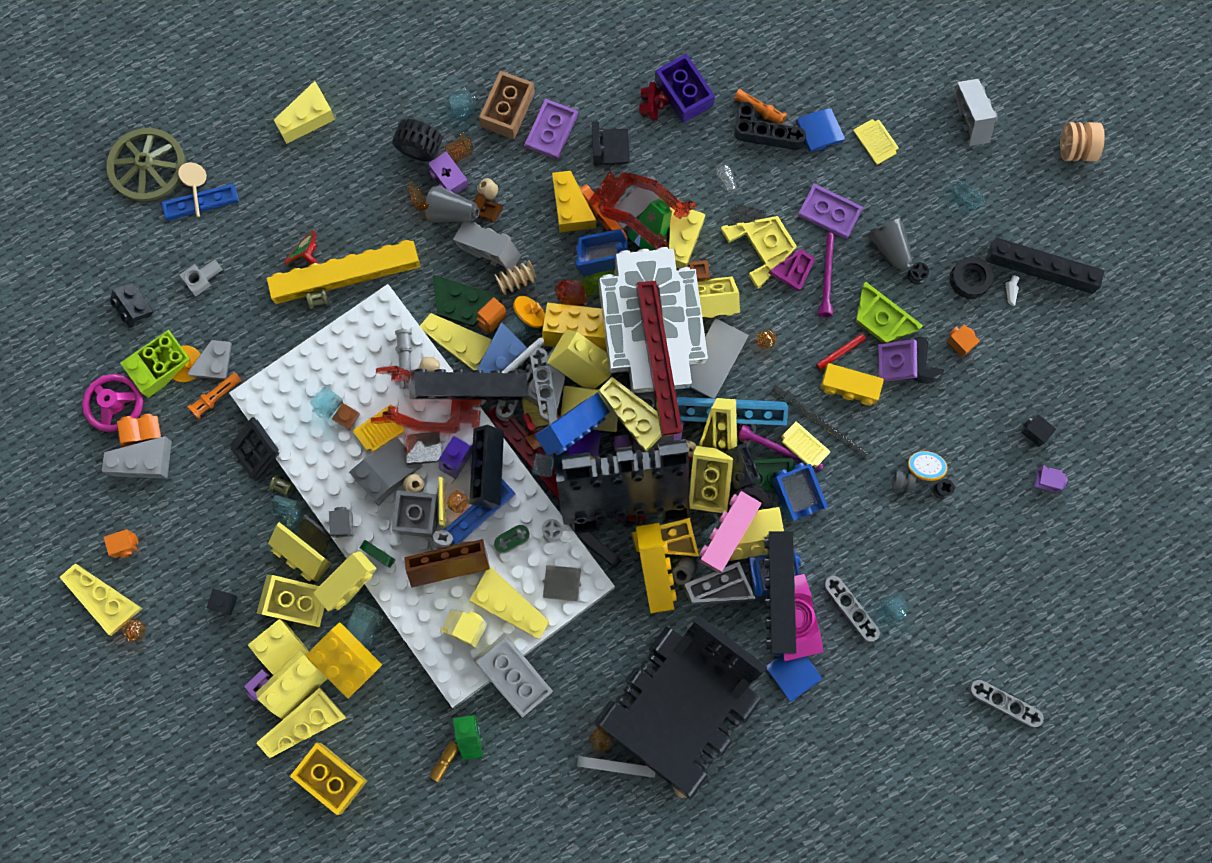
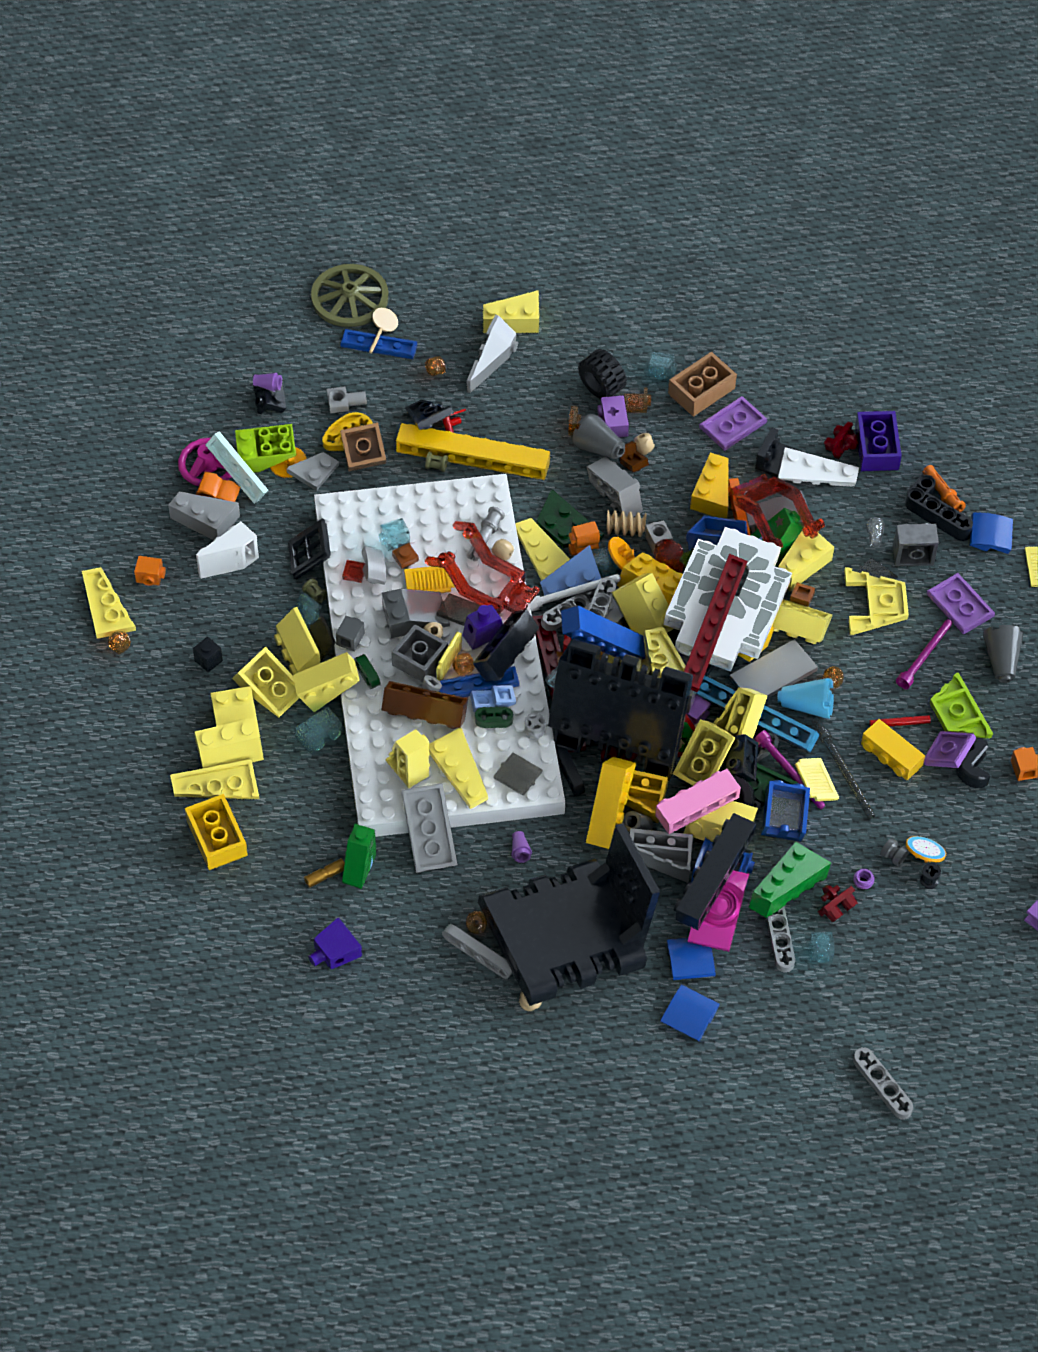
camera: 30 degrees right, 20 degrees down
(123, 297) = (268, 381): none -> medium lavender cone
(142, 400) = (236, 467): none -> light aqua plate
(185, 489) = (228, 552): none -> white slope
(215, 299) = (346, 422): none -> yellow piece
(234, 379) = (290, 496): orange pin -> none
(245, 320) = (363, 446): none -> medium nougat brick
(256, 683) = (196, 727): medium lavender bracket -> none
(263, 201) = (435, 366): none -> clear orange piece
(284, 258) = (425, 413): none -> black wing
(309, 455) = (353, 571): none -> clear red tile
(310, 155) = (498, 348): none -> wedge
(325, 443) = (374, 565): none -> light grey slope
(343, 660) = (286, 744): yellow brick -> none
(467, 386) = (527, 573): black brick -> none
(493, 830) = (335, 946): none -> dark purple torso
(500, 521) = (496, 697): none -> light blue slope
(547, 268) = (655, 532): none -> light grey brick
(597, 645) = (520, 848): none -> medium lavender cone
(644, 142) = (801, 466): none -> white wing
(758, 371) = (809, 697): none -> medium azure cone
(769, 176) = (915, 544): none -> flat silver brick
(794, 269) = (894, 632): magenta wing -> none
(820, 725) = (690, 1012): none -> blue slope
(837, 553) = (788, 879): none -> wedge
(880, 554) = (845, 898): none -> dark red hips
(891, 513) = (863, 873): none -> medium lavender plate
(921, 270) = (1013, 685): black wheel -> none

